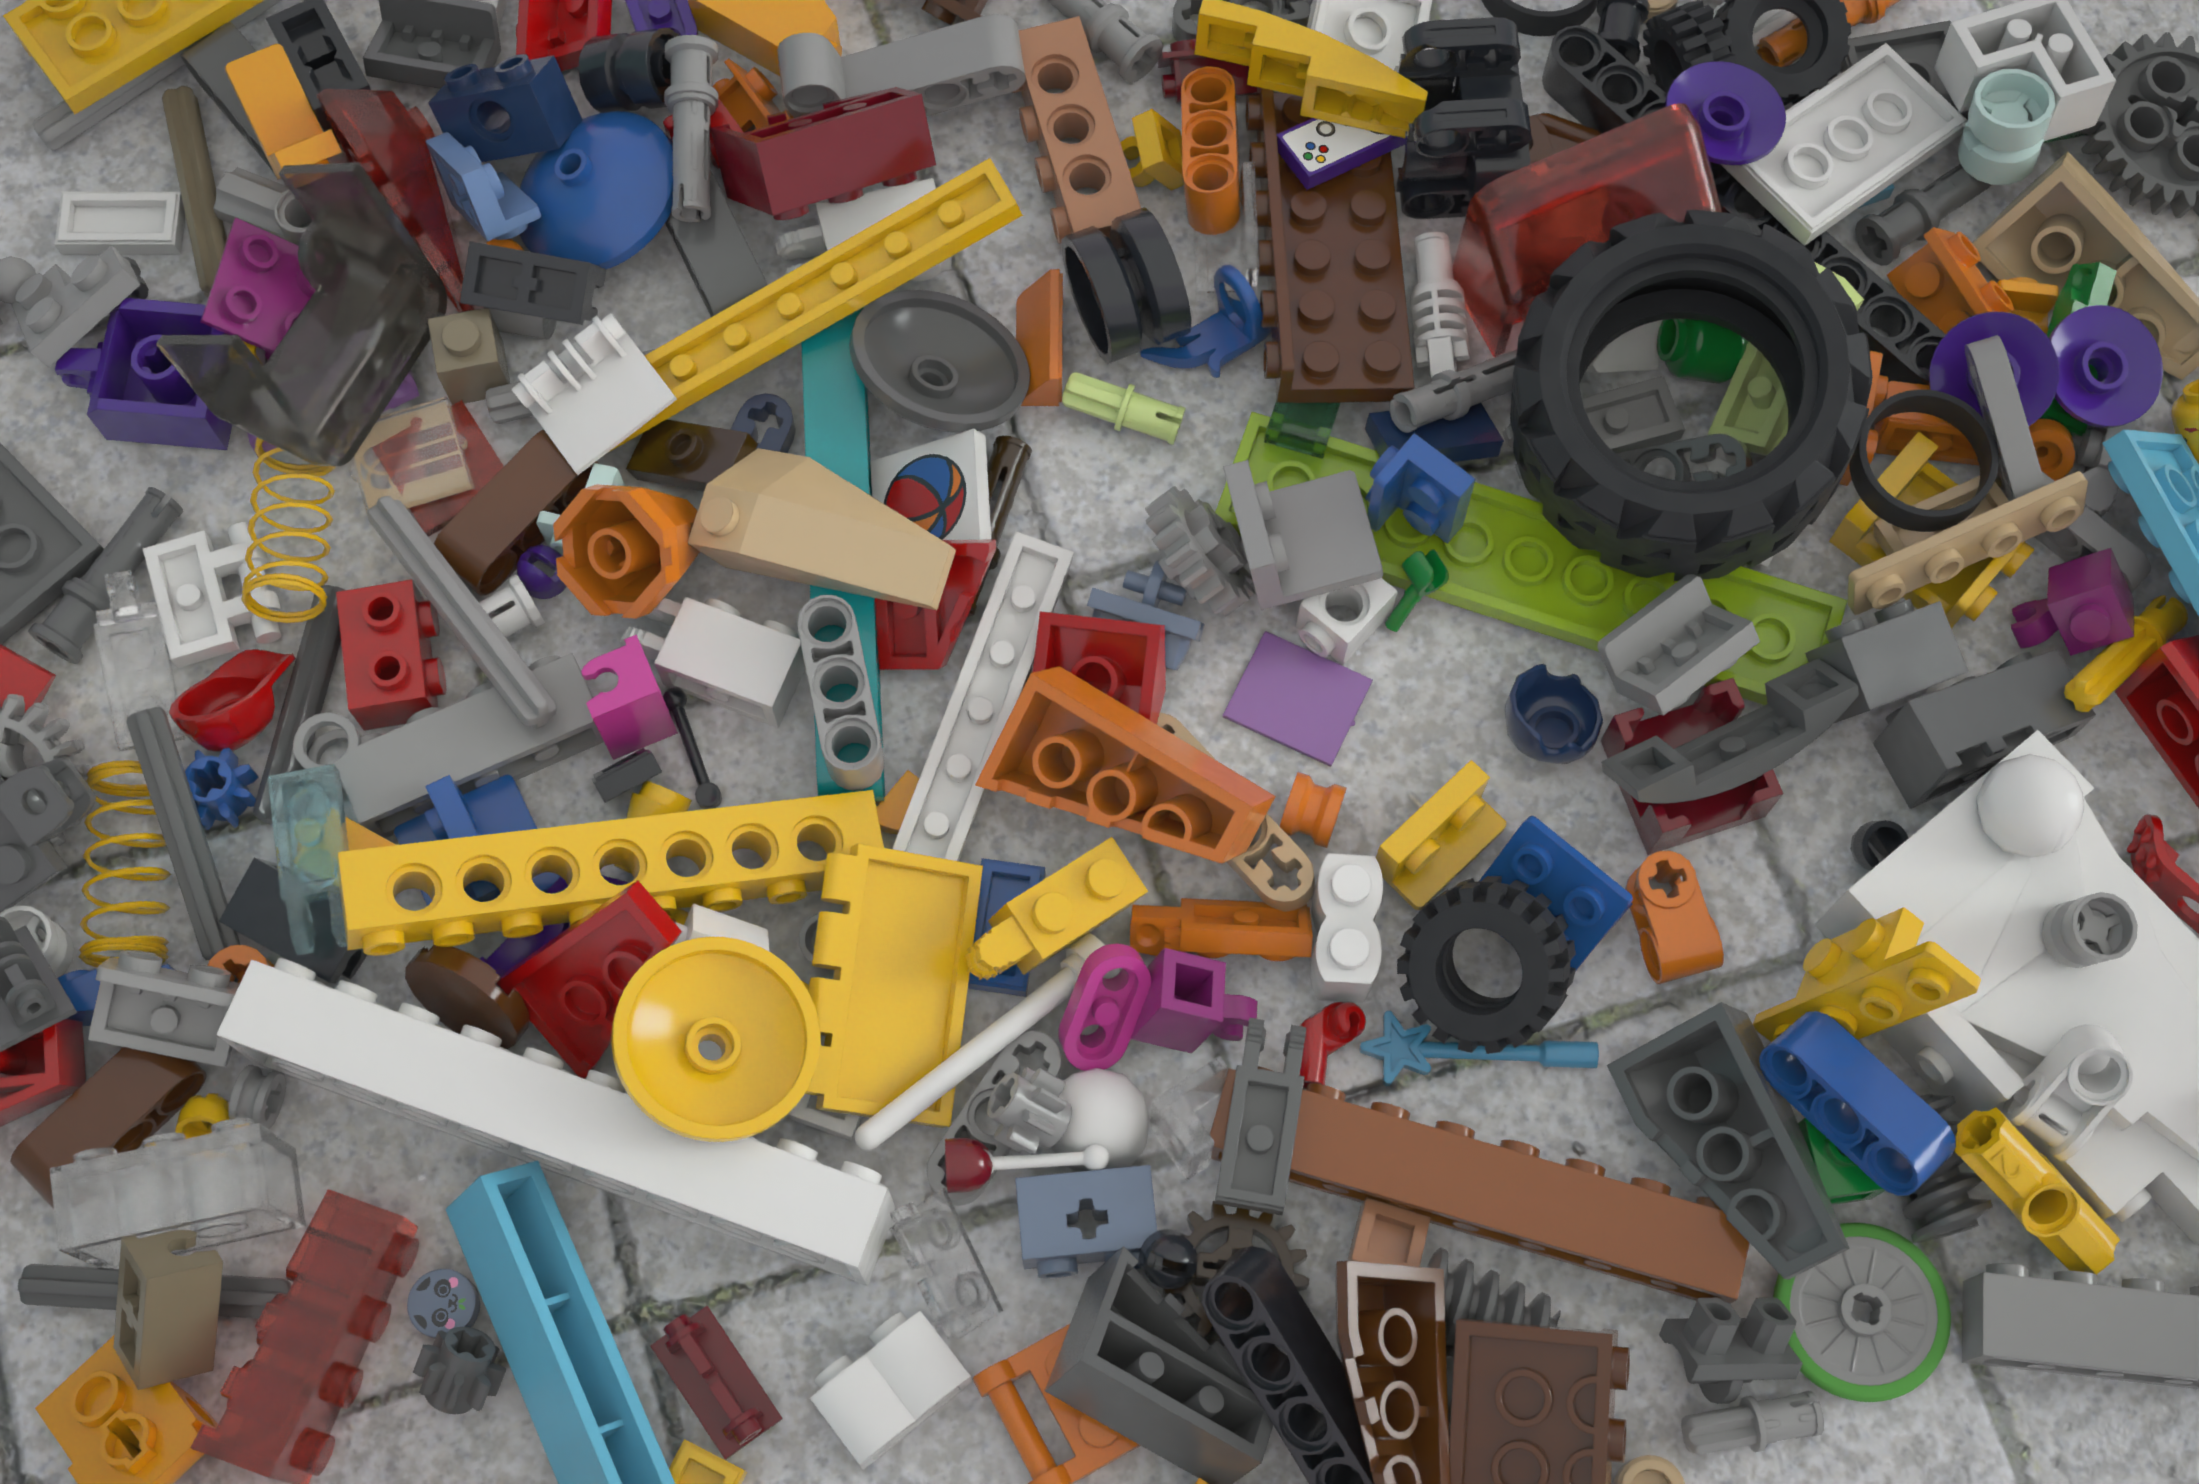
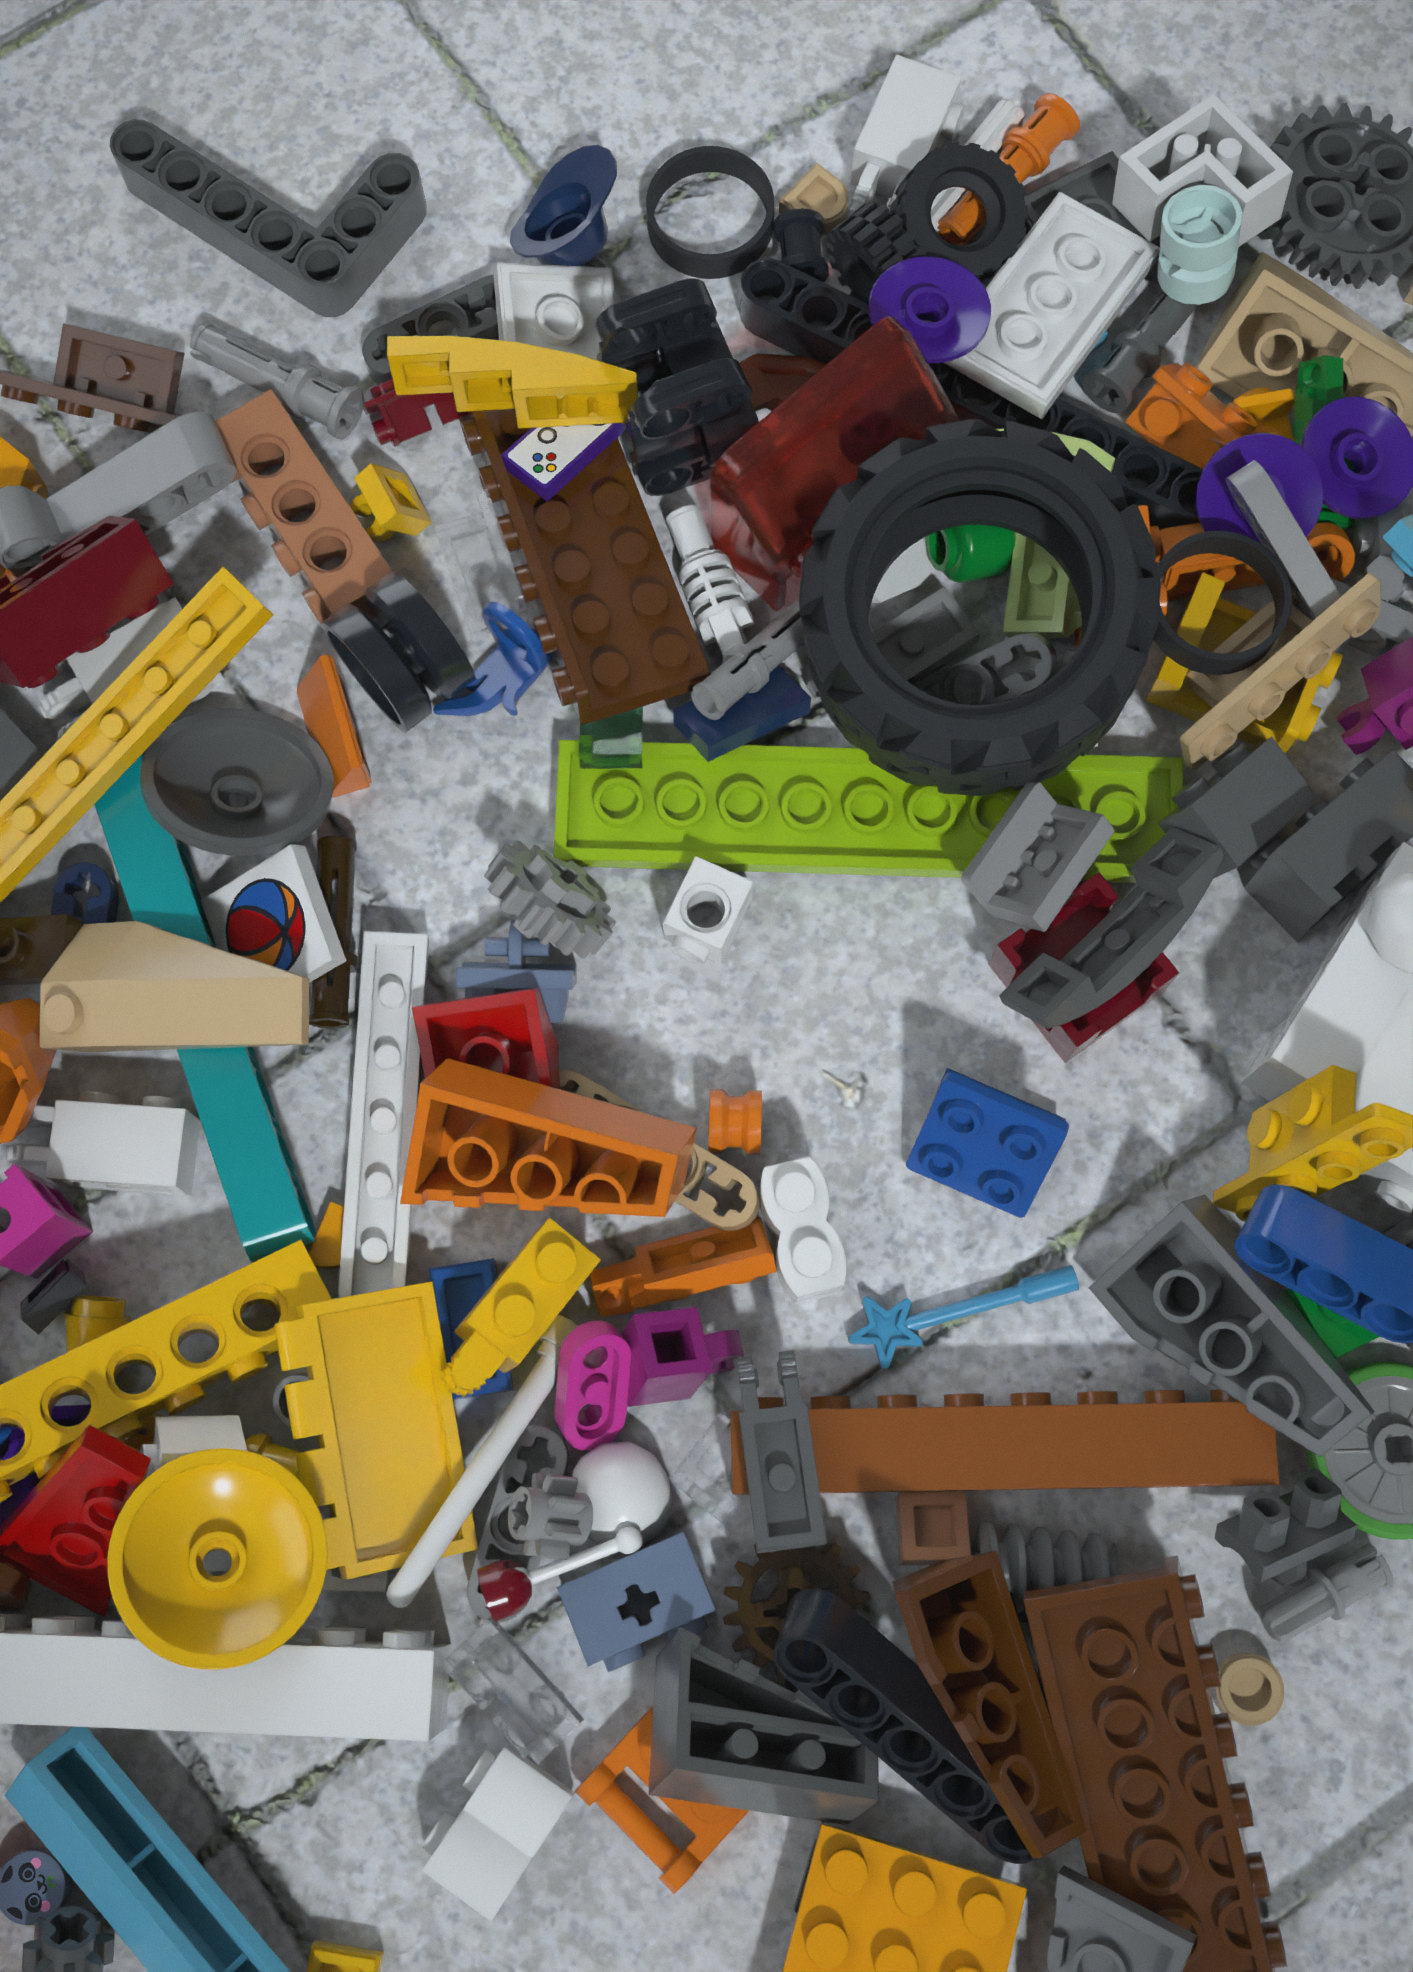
camera: 15 degrees left, 5 degrees up
(707, 793) = (140, 1285): black hinge -> none
(715, 1381) = (326, 1875): dark red hinge -> none
(836, 664) = (214, 1135): light grey beam -> none
(925, 637) = (311, 1070): red wing -> none
(1123, 407) = (432, 771): yellowish green axle -> none
(1171, 1246) = (730, 1611): black hinge -> none
(1210, 150) = (441, 488): orange beam -> none
(1297, 698) = (687, 1011): medium lavender window -> none
(1303, 535) = (645, 855): light grey bracket -> none
(1325, 1034) = (811, 1339): red arm -> none
(1423, 485) = (751, 771): blue bracket -> none
(1426, 575) = (776, 856): green hand -> none
(1440, 838) = (866, 1114): yellow bracket -> none
(1453, 1005) = (936, 1278): black tyre -> none
(1552, 716) = (937, 958): dark blue hair -> none
(1676, 928) = (1112, 1129): orange piece -> none
(1883, 836) = (1284, 979): black hinge -> none

